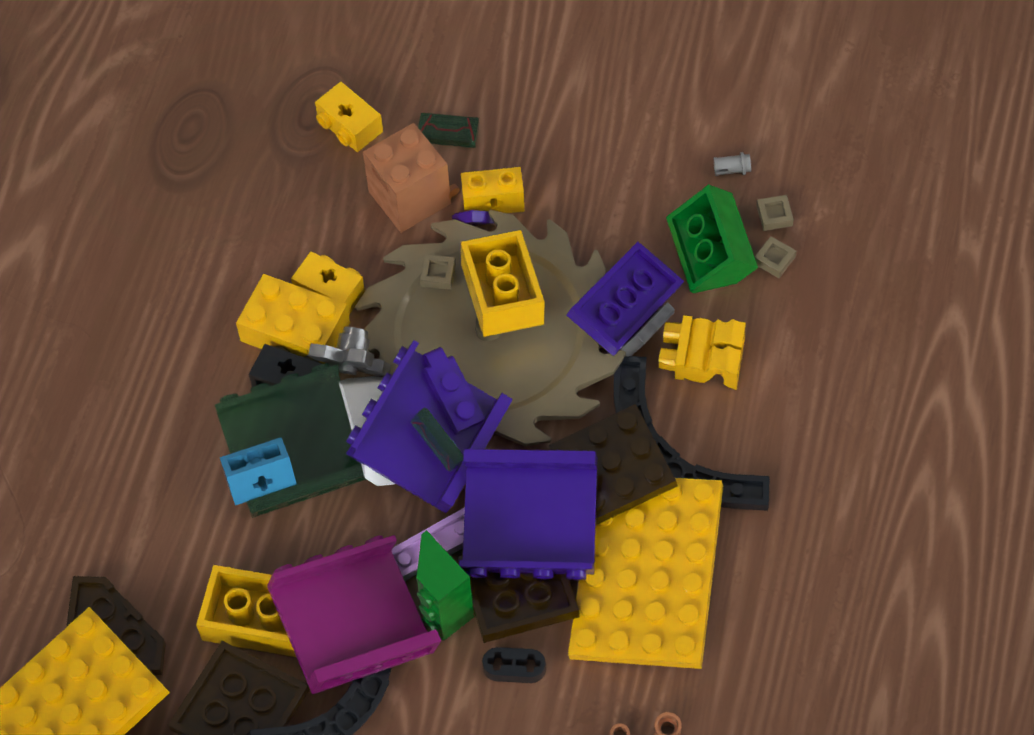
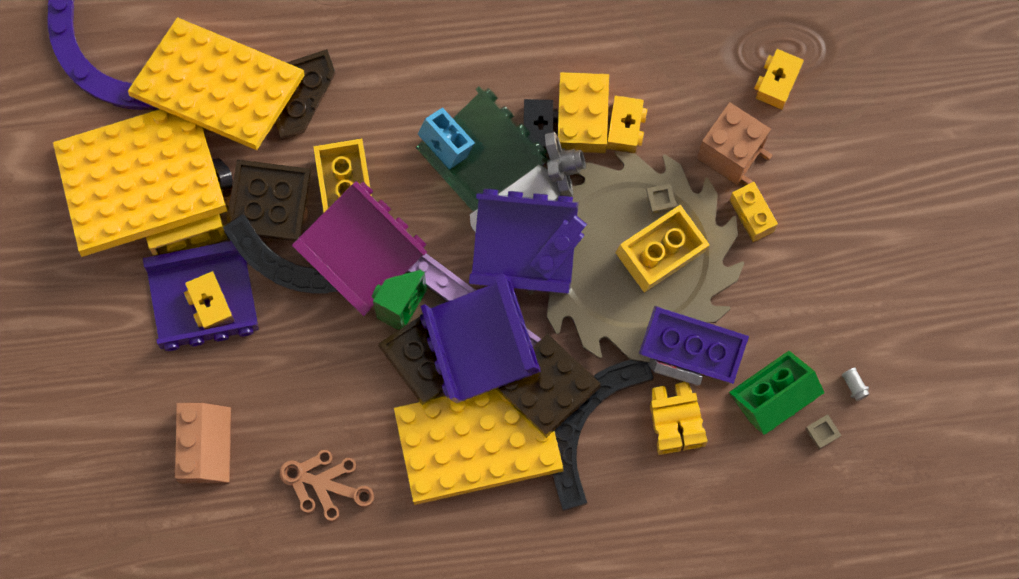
camera: 65 degrees right, 15 degrees up
(437, 439) = (515, 252): tile -> none
(449, 129) = (801, 157): clear green tile -> none
(473, 217) = (724, 207): dark purple tile -> none
(514, 665) = (379, 372): black beam -> none
(775, 257) = (782, 445): dark tan plate -> none

